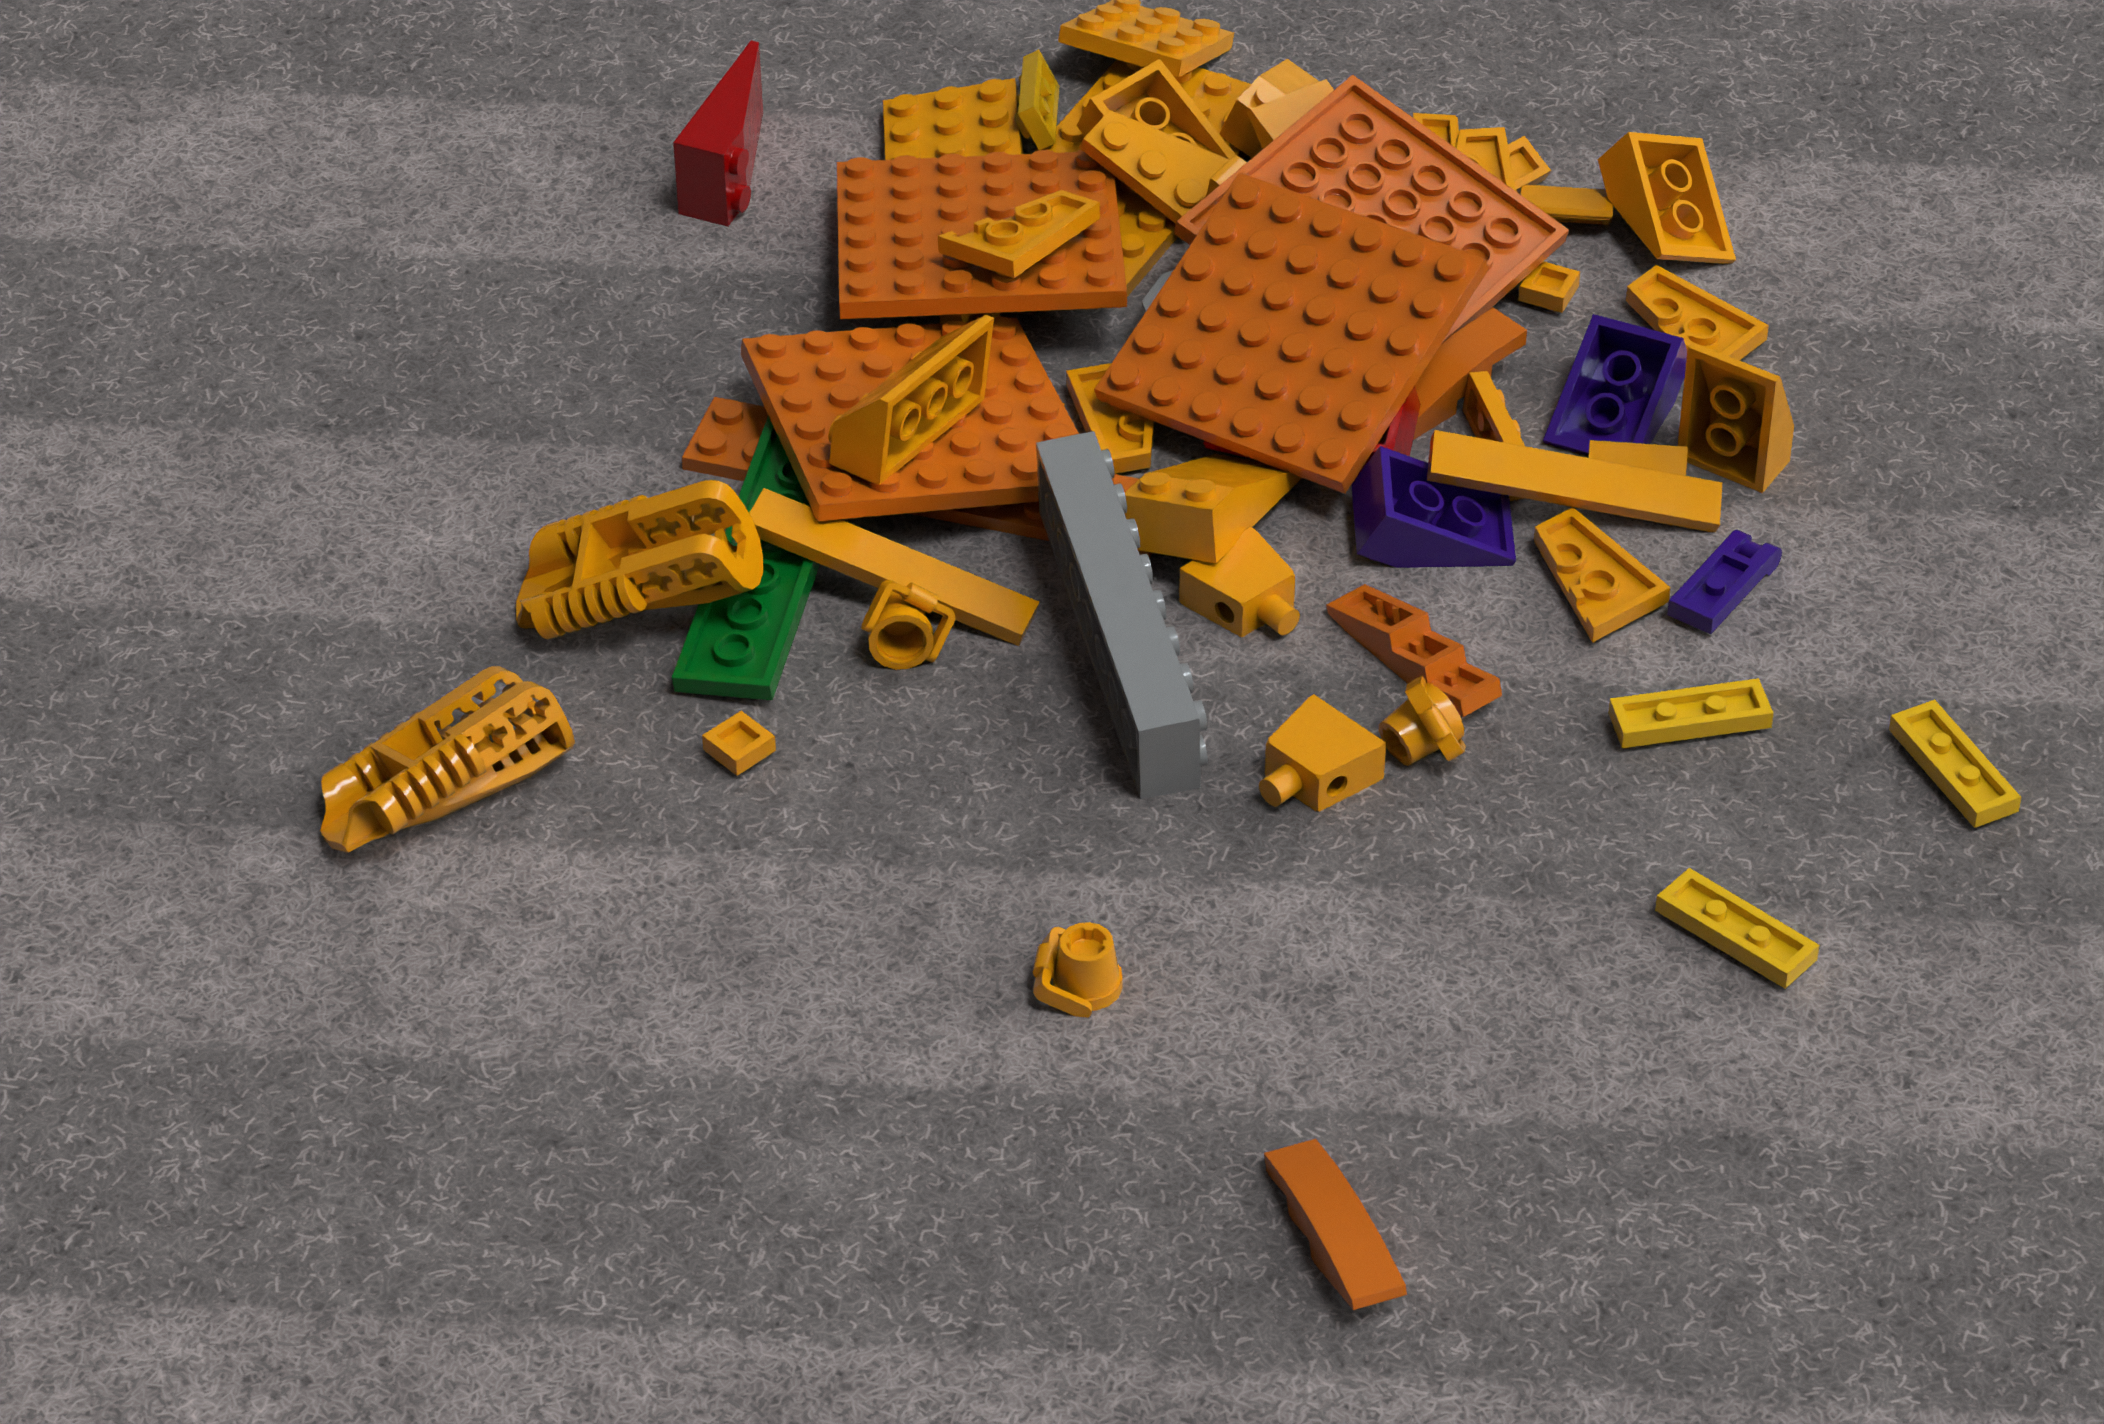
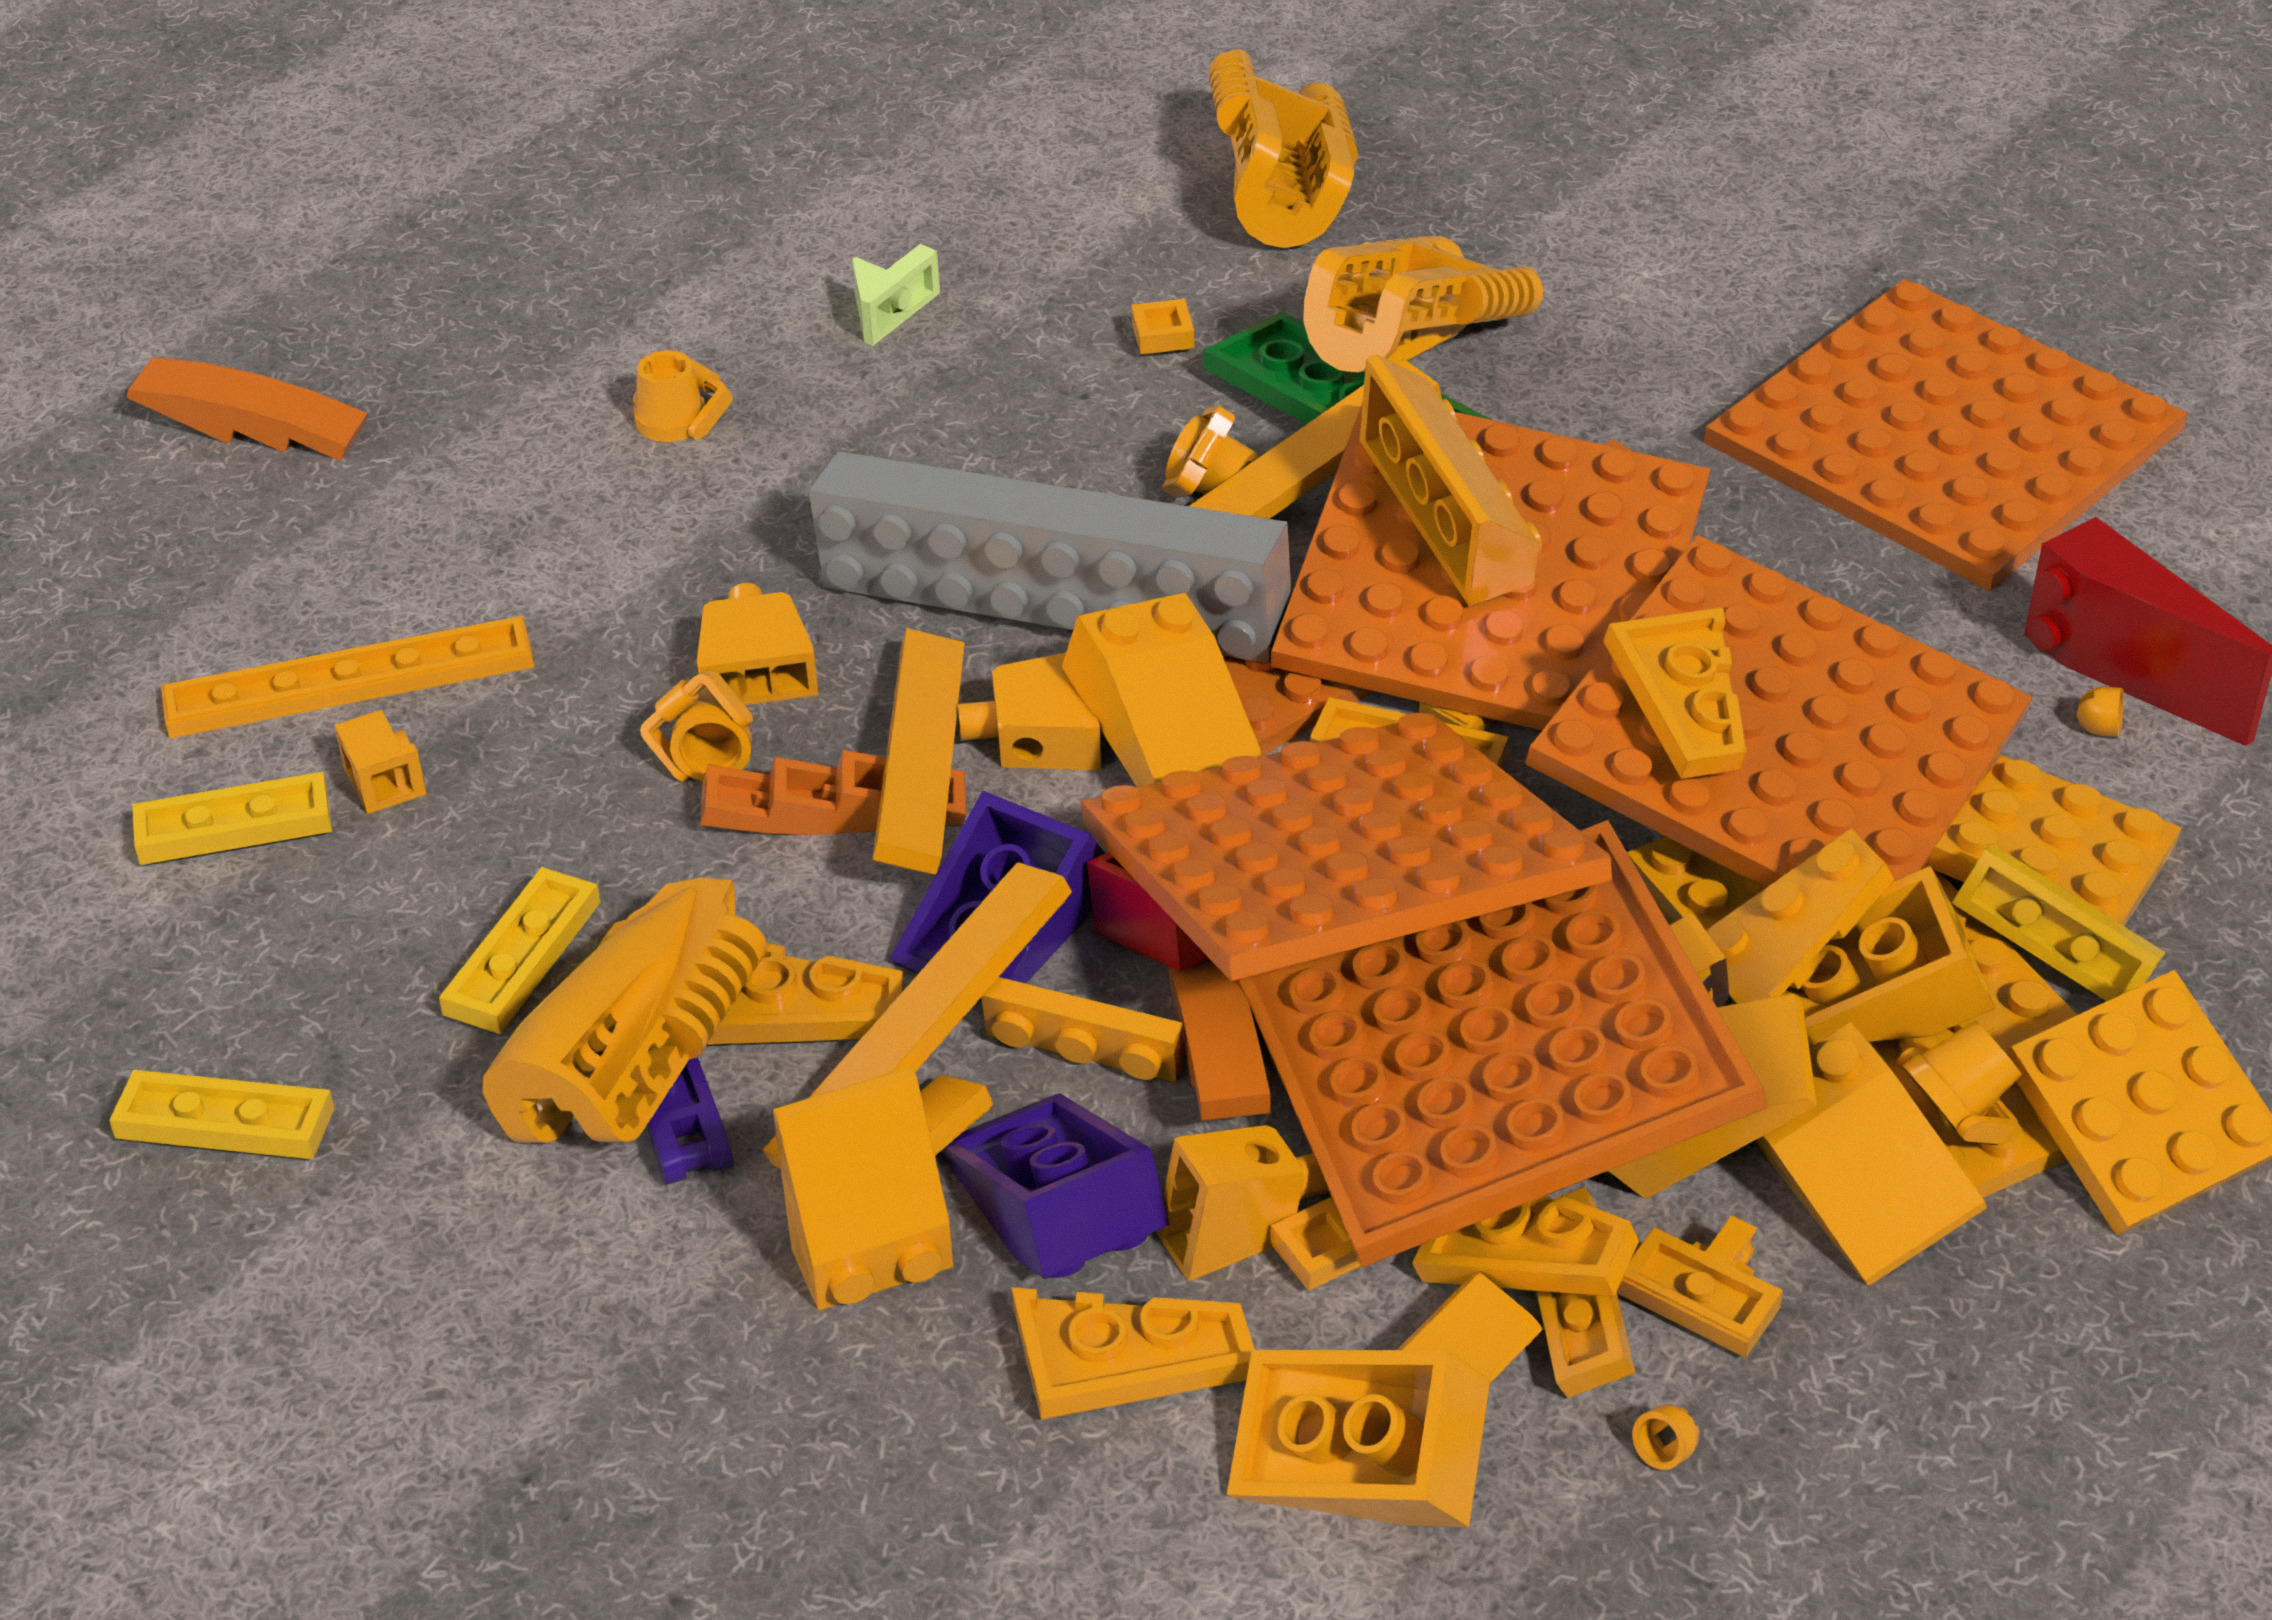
camera: 125 degrees right, 0 degrees up
(523, 323) = (1946, 431): none -> orange plate
(787, 151) = (2102, 711): none -> light orange hinge
(844, 911) = (894, 294): none -> yellowish green slope
(1220, 72) = (1965, 1082): none -> light orange piece
(1341, 611) = (919, 753): none -> light orange tile
(1540, 128) = (1650, 1446): none -> light orange hinge
(1546, 975) = (346, 676): none -> light orange tile
(1560, 303) = (1228, 1192): none -> light orange torso
(1616, 880) = (379, 761): none -> light orange brick
(1706, 601) = (626, 1018): none -> light orange connector

